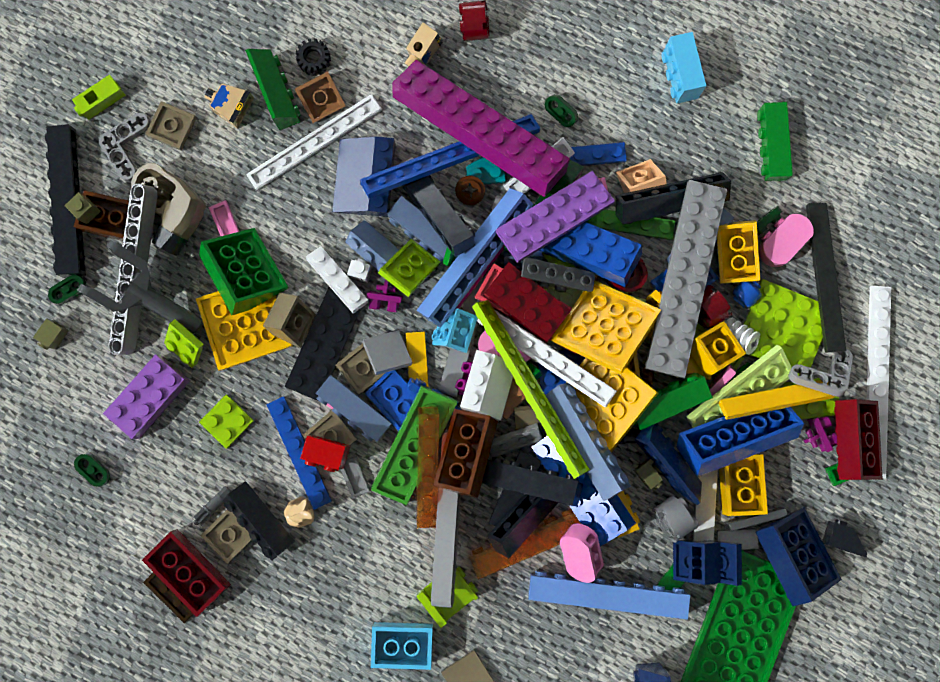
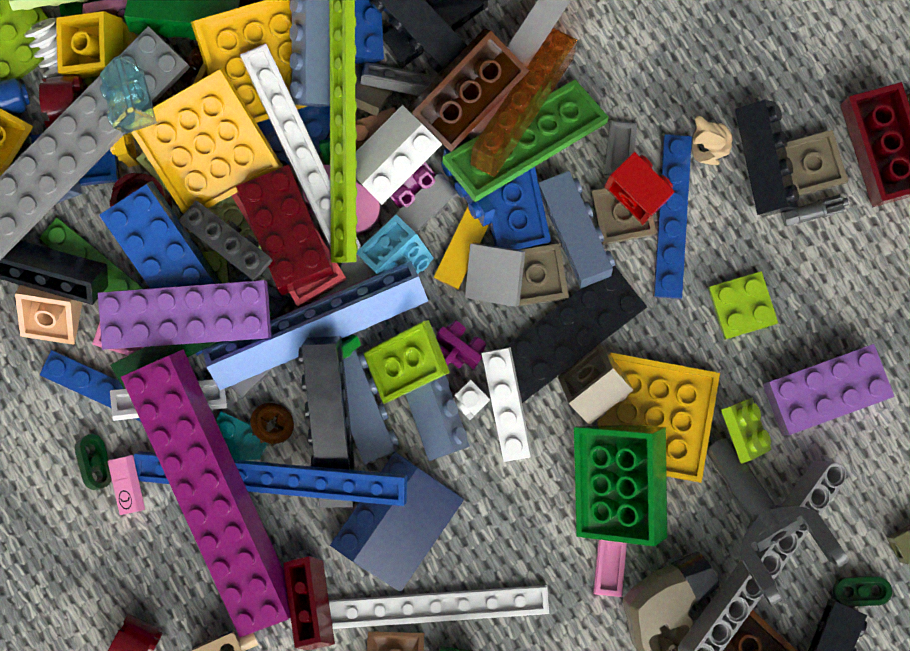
camera: 150 degrees left, 0 degrees up
(387, 99) = (308, 603): none -> dark red brick
(534, 108) = (126, 485): none -> bright pink tile
(667, 322) = (126, 96): none -> clear light blue slope

